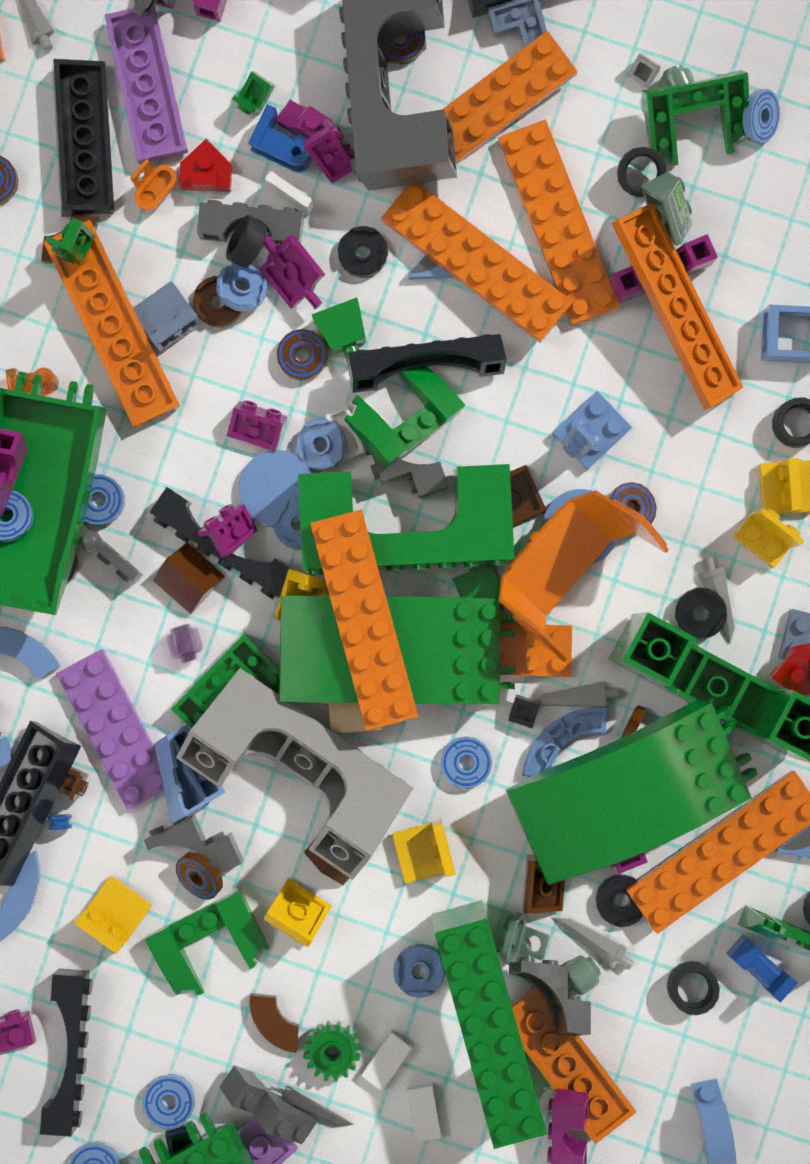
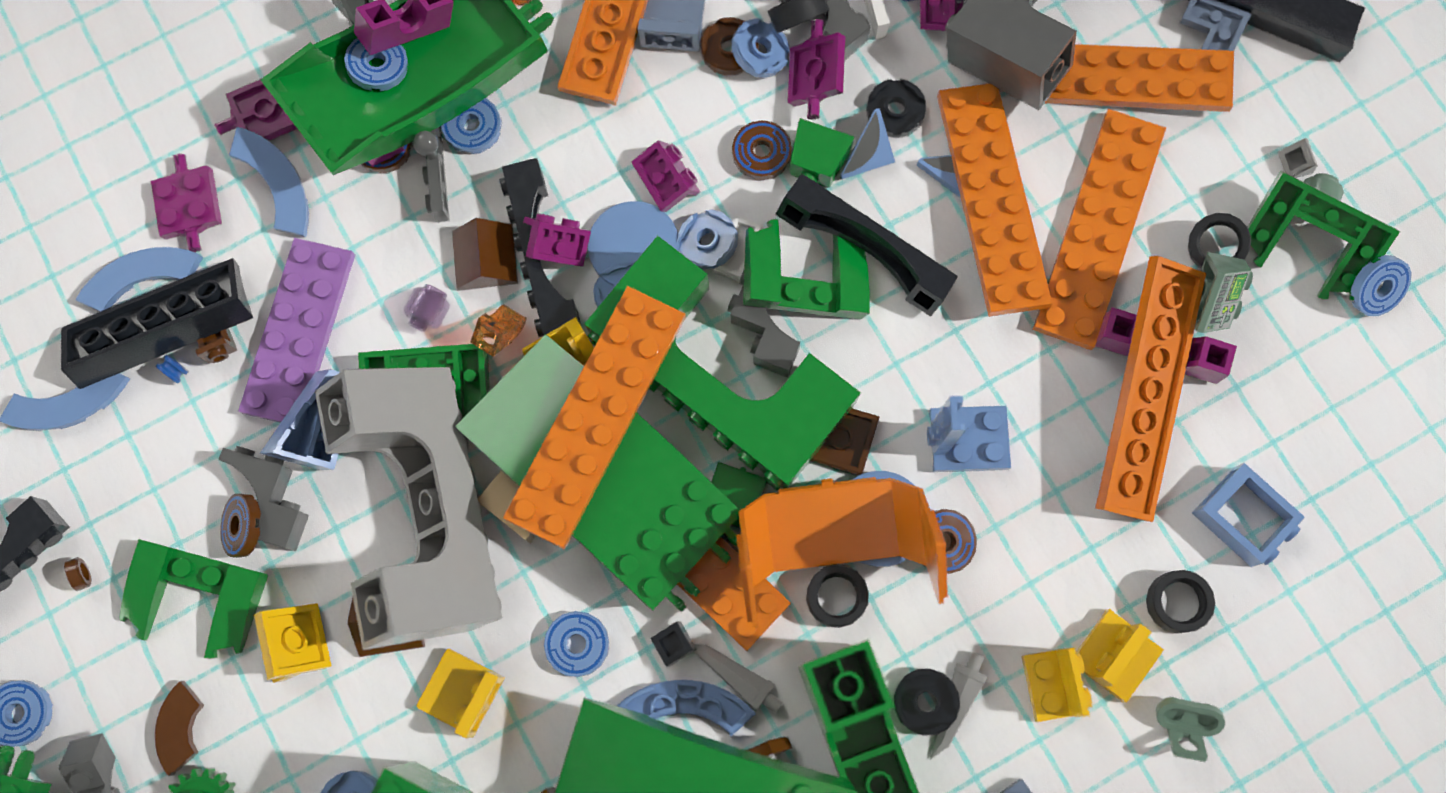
camera: 45 degrees right, 10 degrees down
(113, 914) = (134, 493): yellow bracket -> none
(125, 992) = (77, 574): none -> reddish brown tile
(244, 614) = (501, 326): none -> clear orange leg
(372, 295) = (871, 149): none -> tile
(614, 590) = (861, 598): none -> black tyre

